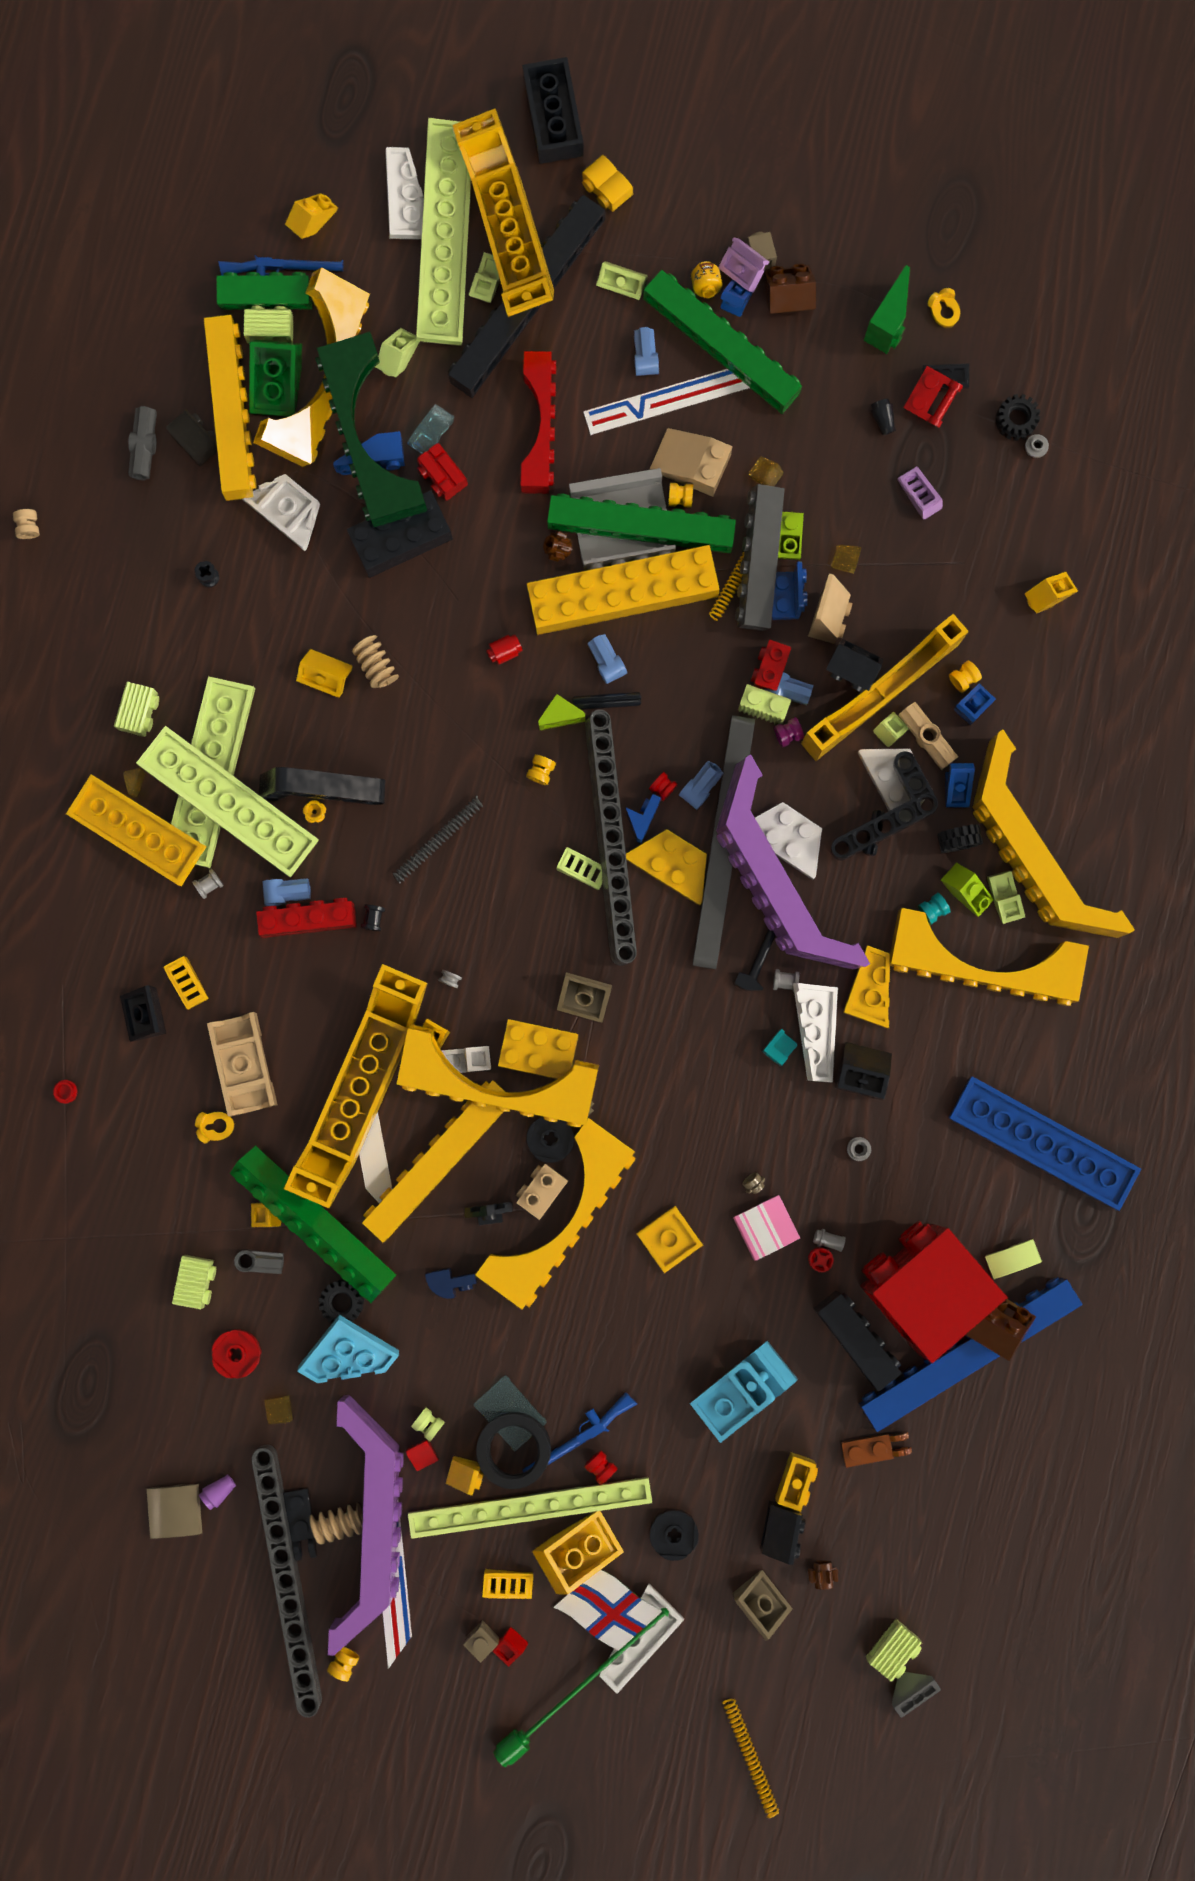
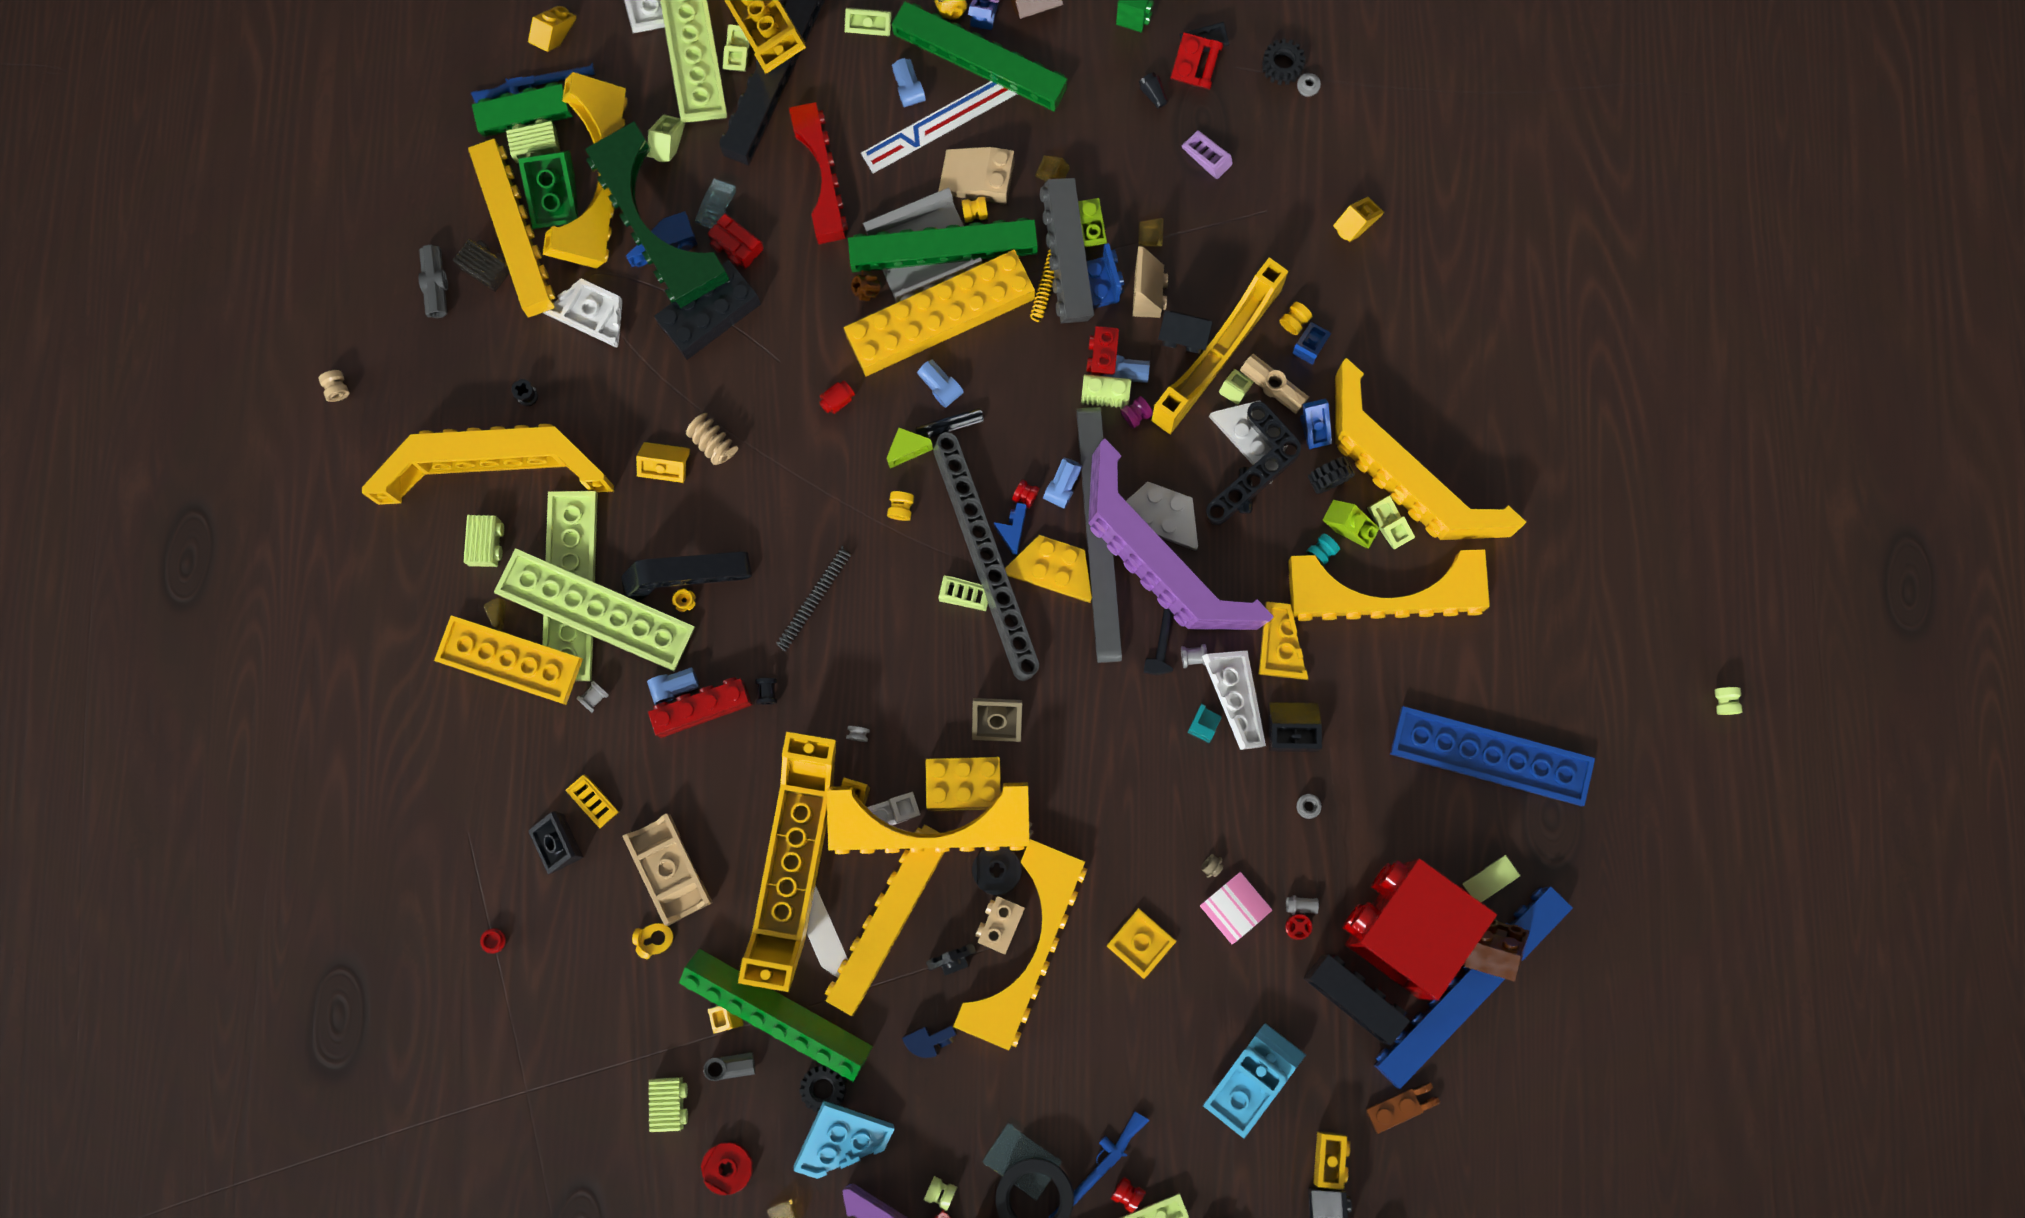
camera: 10 degrees left, 5 degrees down
(150, 622) = (476, 452): none -> yellow slope

